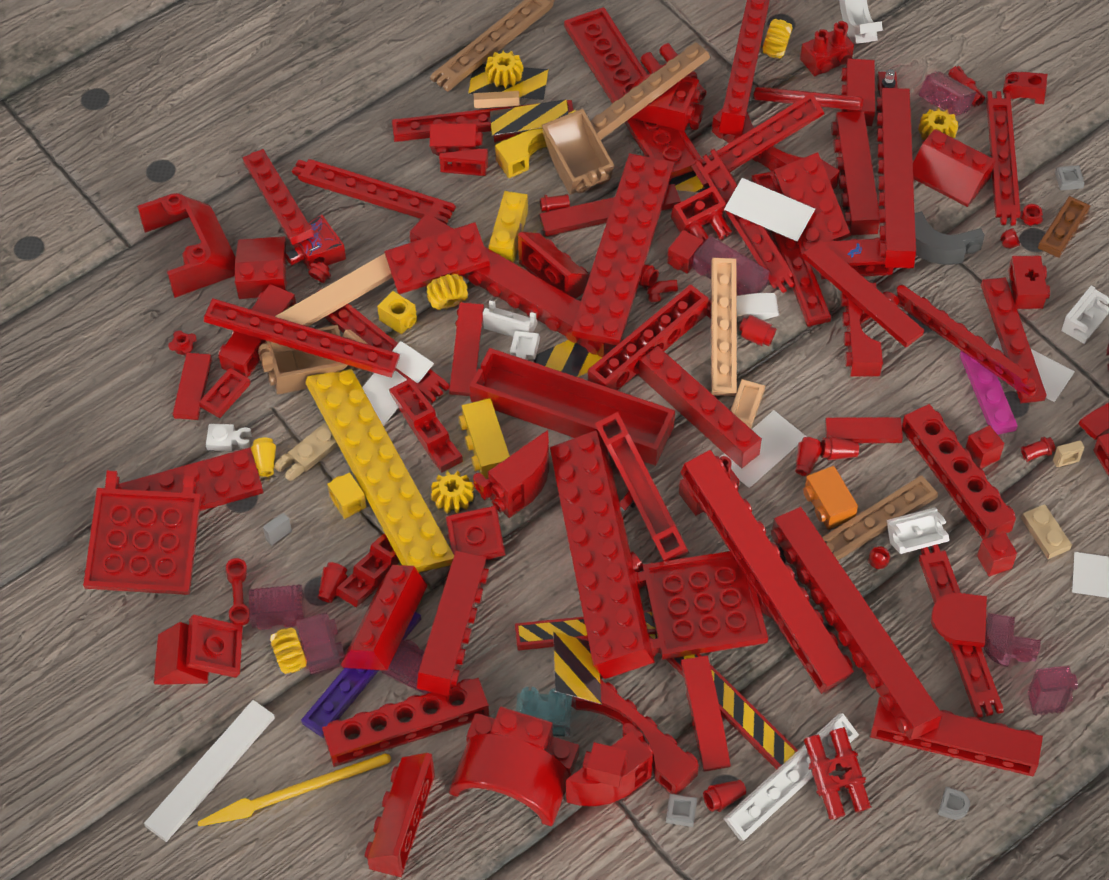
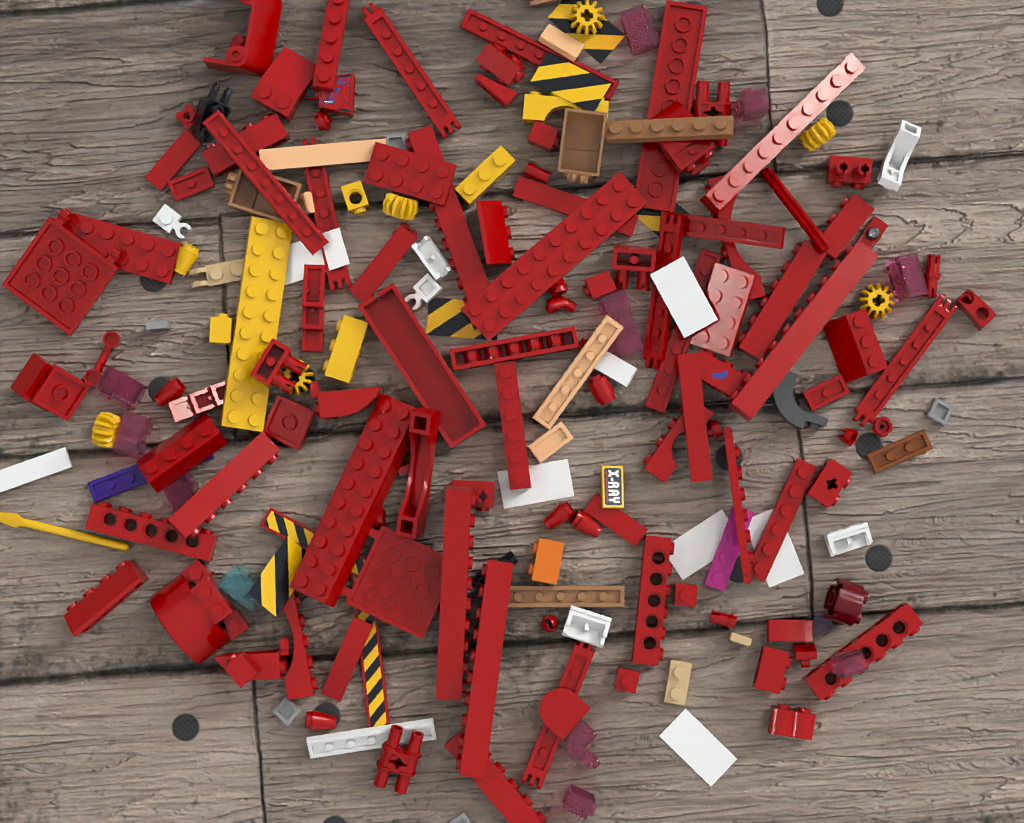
camera: 30 degrees right, 30 degrees up
(200, 331) = (207, 107): none -> black hinge
(420, 479) = (271, 361): none -> red brick
(537, 172) = (544, 136): none -> red brick
(557, 54) = (638, 30): none -> clear pink brick
(709, 37) = (751, 105): none -> clear pink brick
(836, 402) = (612, 487): none -> tile
(959, 216) = (826, 392): none -> red plate
(959, 405) = (698, 545): none -> white sticker

